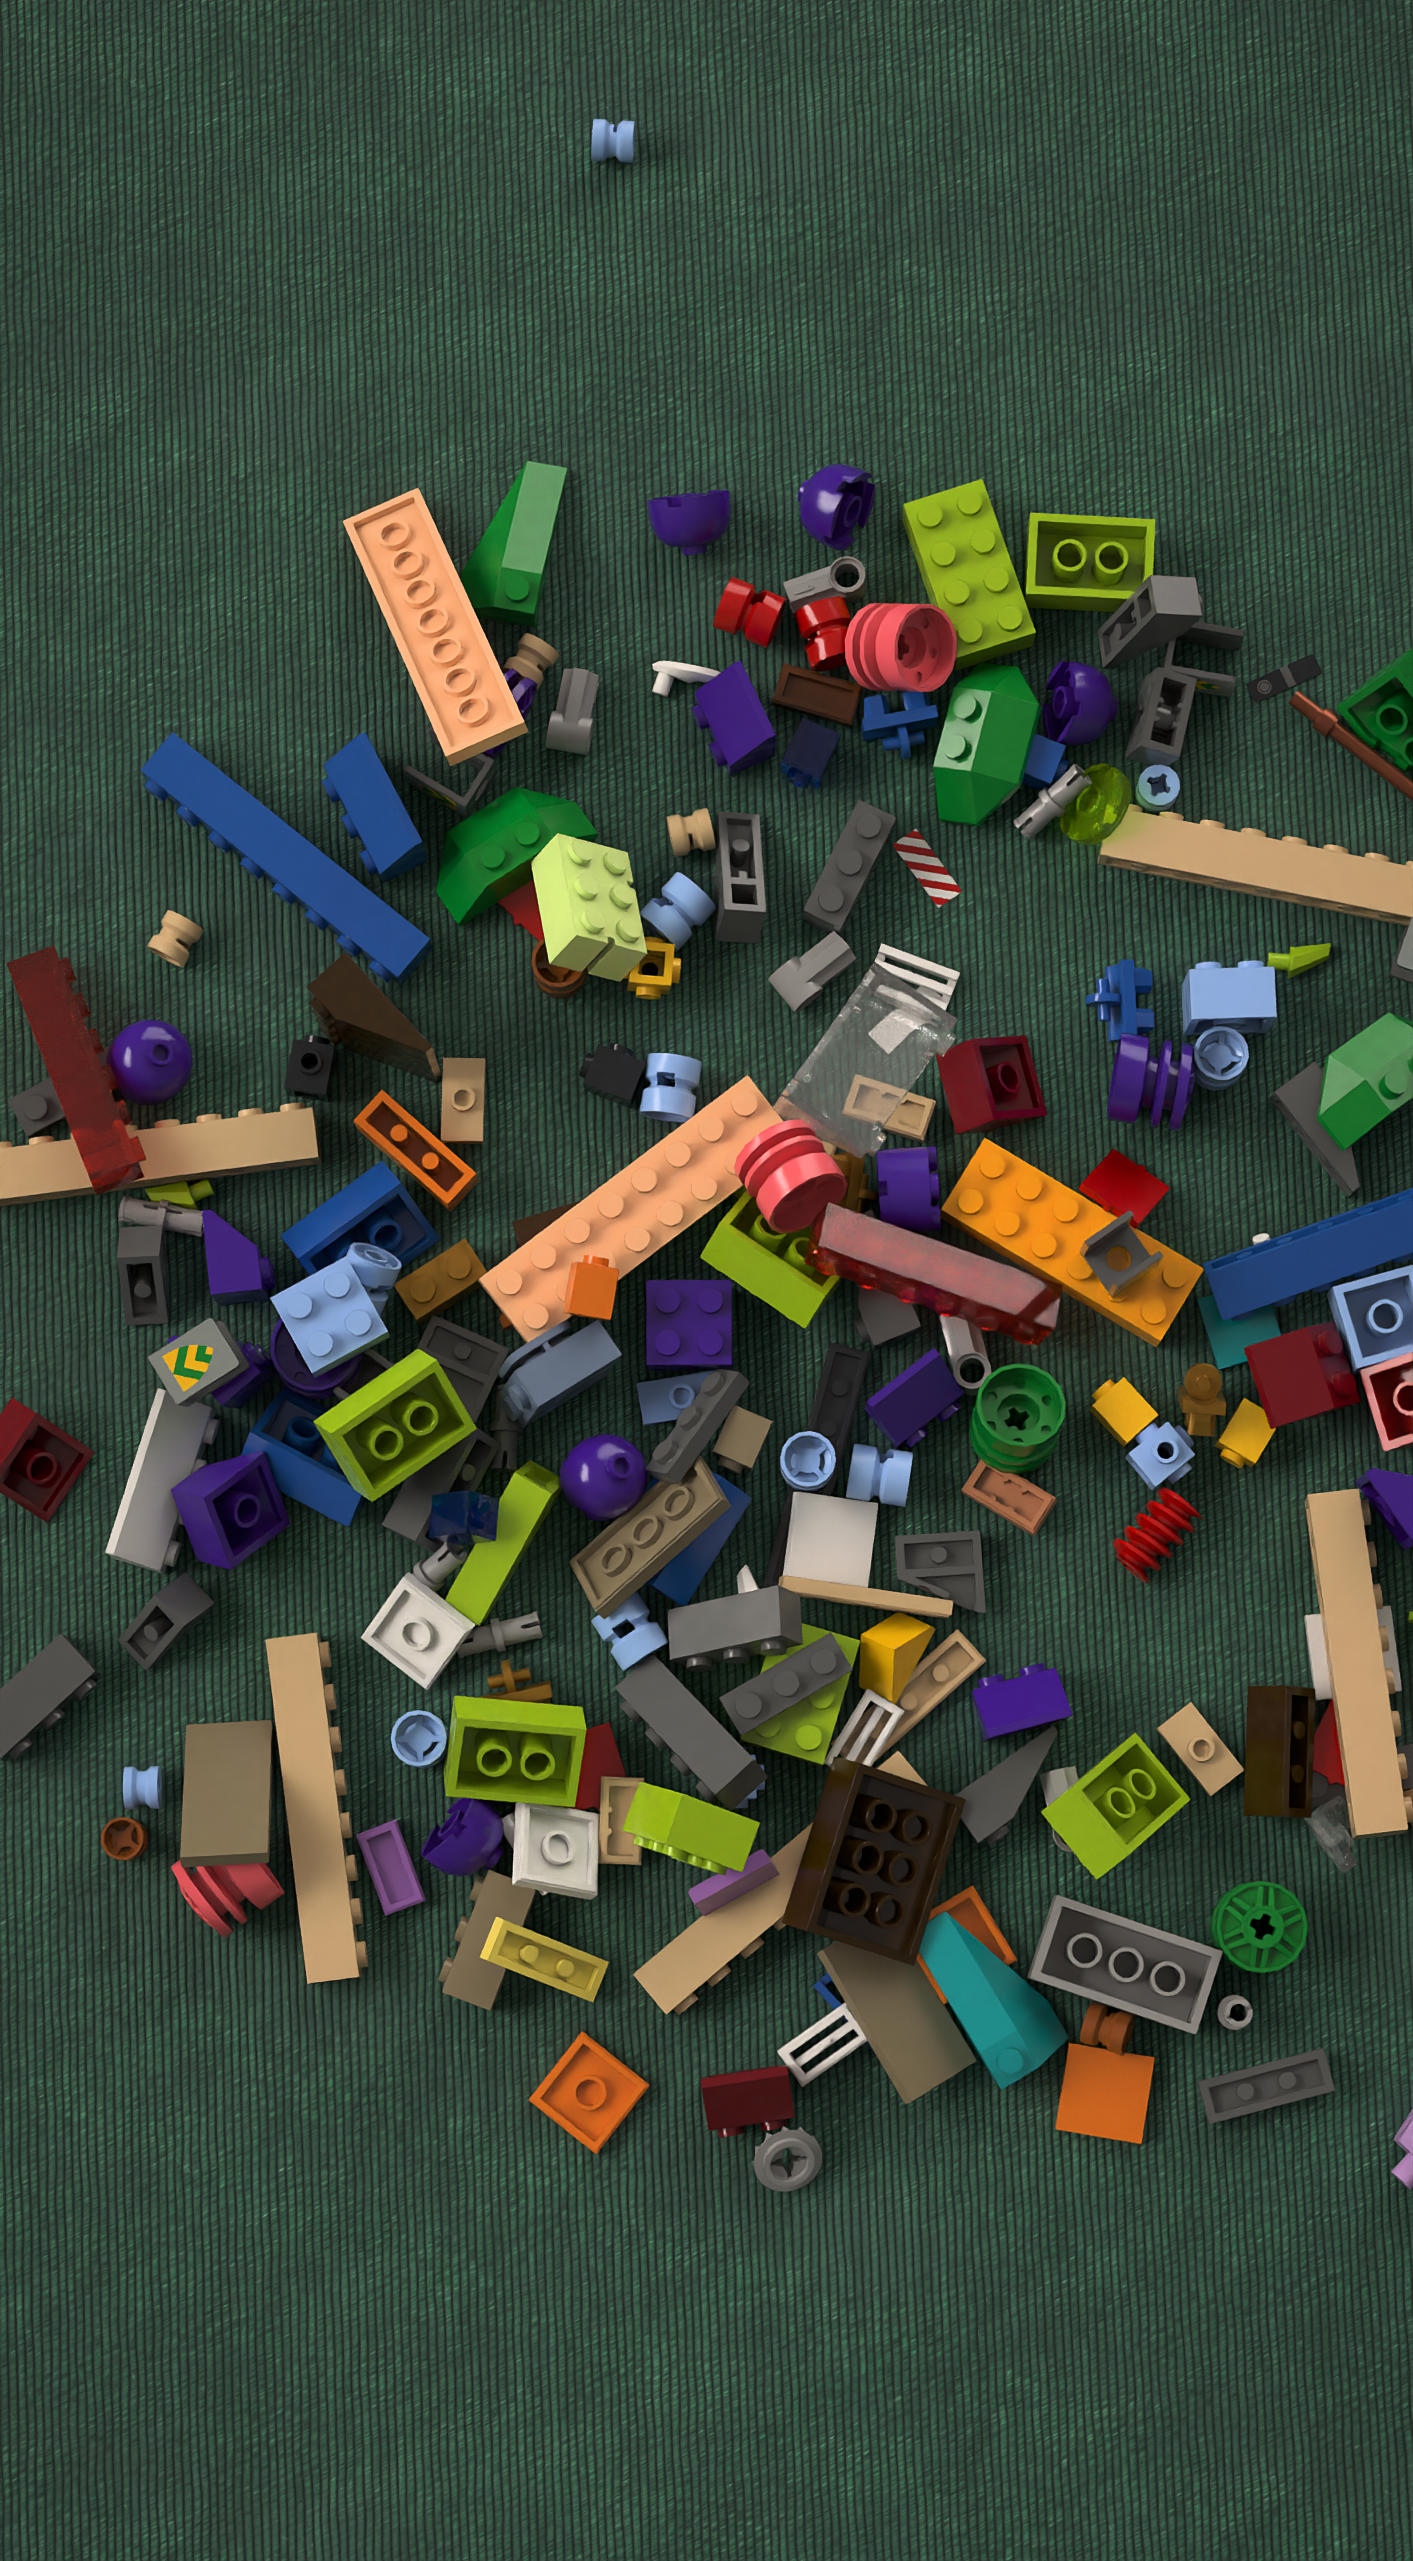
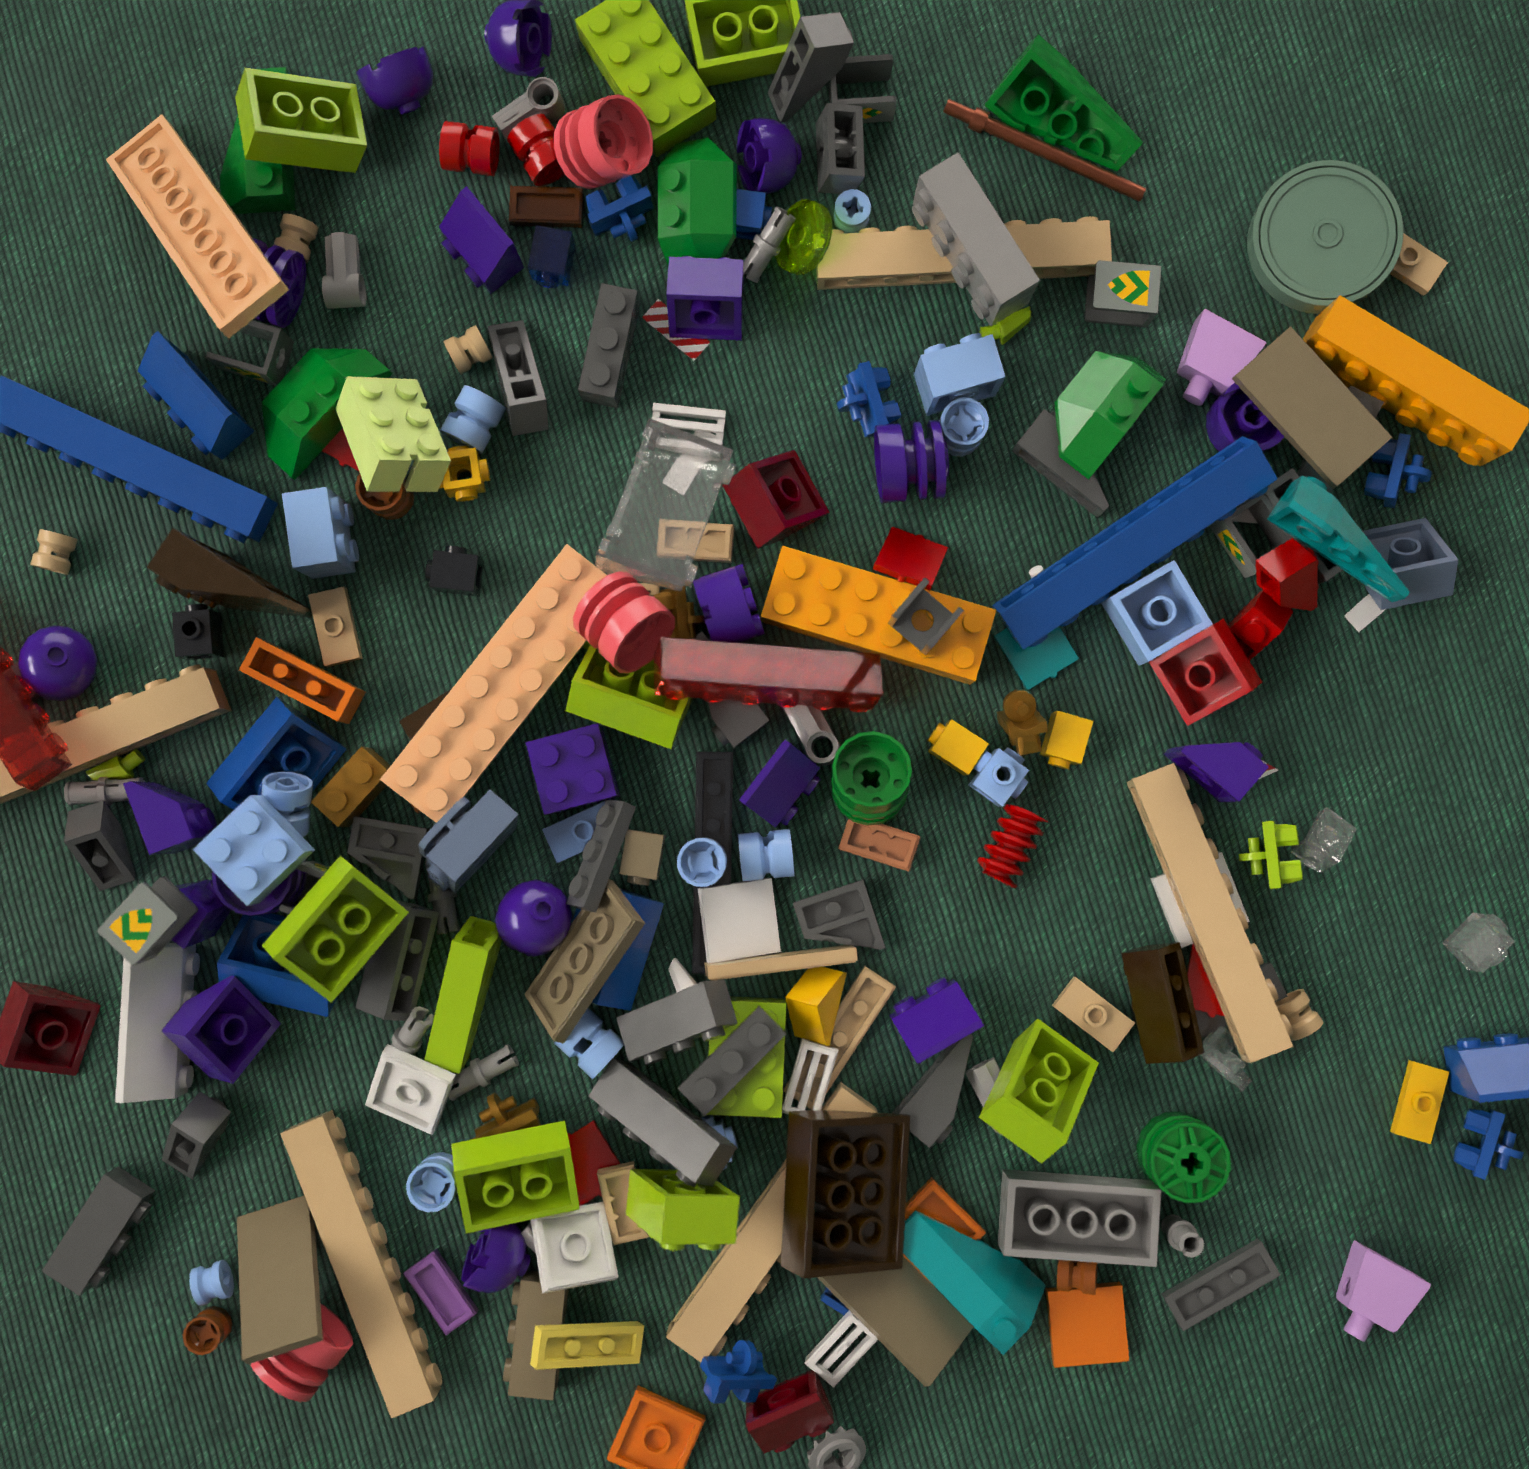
camera: 15 degrees left, 5 degrees up
(464, 1517) = (419, 990): clear blue brick -> none
(477, 994) = (320, 532): none -> light blue brick
(575, 541) = (300, 121): none -> lime brick
(591, 1288) = (476, 765): orange brick -> none
(668, 1102) = (503, 583): light blue wheel -> none
(689, 673) = (420, 215): white bar -> none
(704, 2032) = (736, 1371): none -> blue hips
(723, 1889) = (747, 1226): medium lavender tile -> none
(803, 978) = (596, 448): light grey piece -> none
(969, 844) = (705, 298): none -> dark purple slope
(1279, 861) = (973, 240): none -> light grey brick
(1284, 678) = (933, 93): black sticker -> none
(1302, 1375) = (1102, 678): dark red slope -> none

